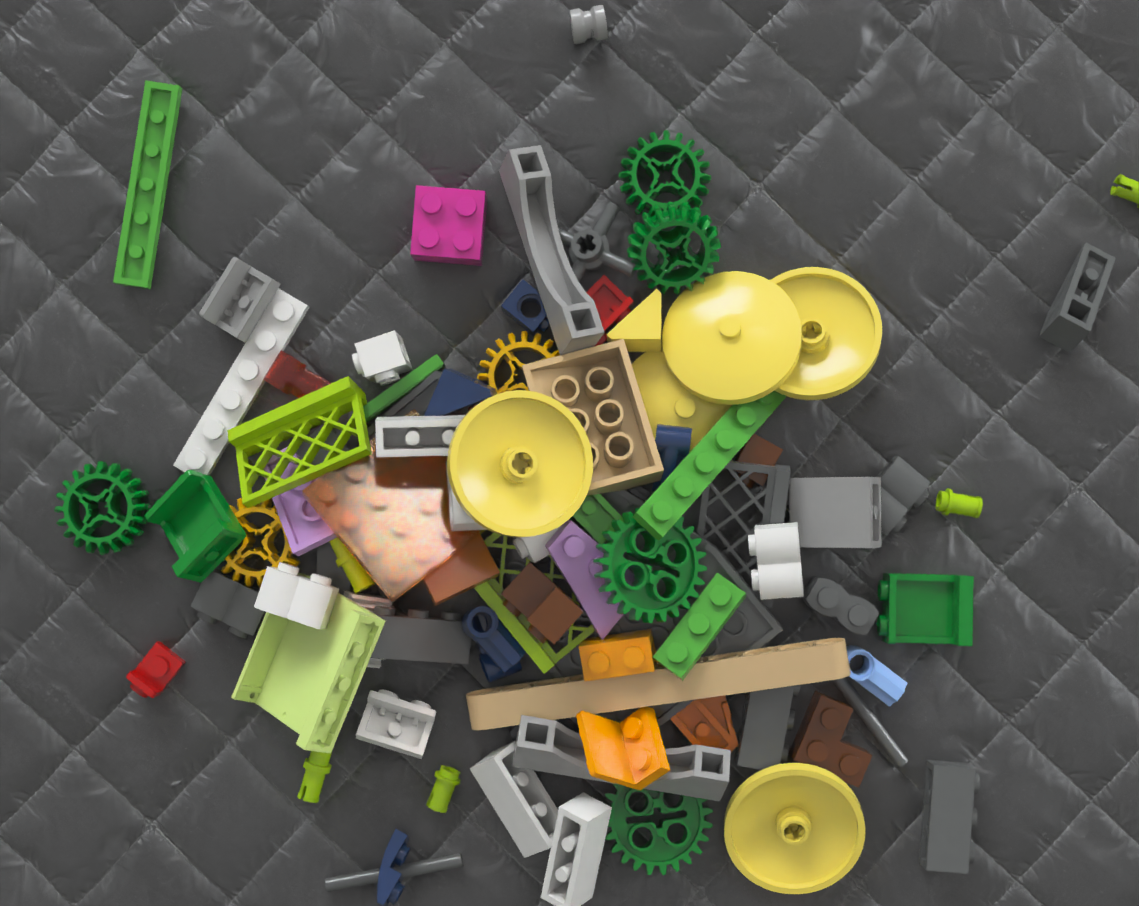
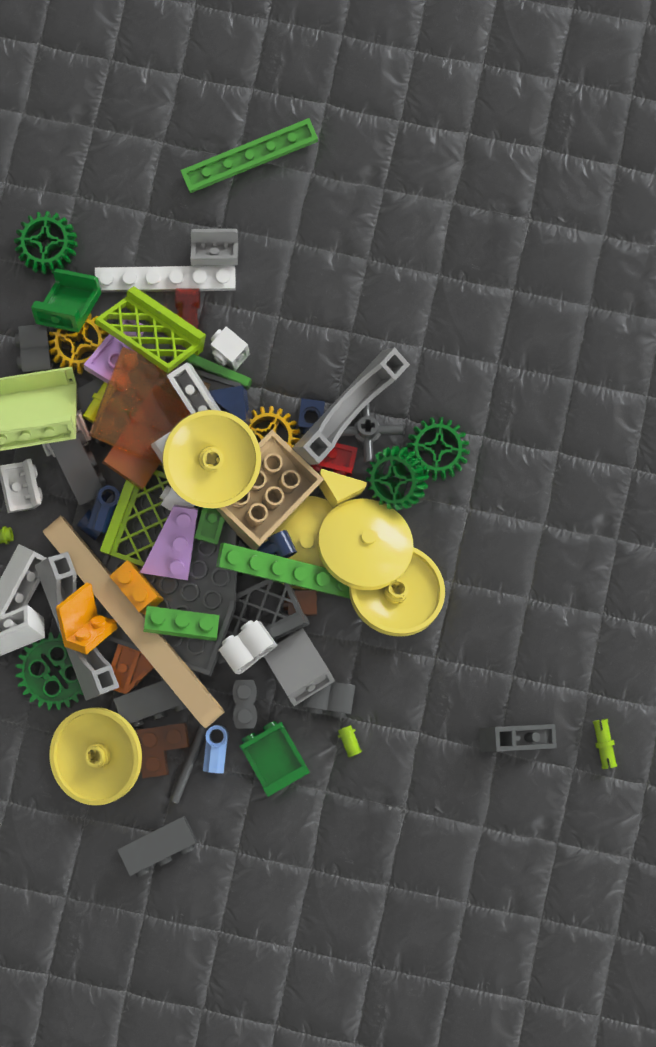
camera: 60 degrees right, 5 degrees down
(297, 597) = (59, 382): white brick -> none
(448, 225) = (331, 341): dark pink brick -> none
(542, 603) = (140, 524): reddish brown brick -> none
(588, 24) = (500, 350): light grey wheel -> none
(642, 596) = (180, 577): green gear -> none

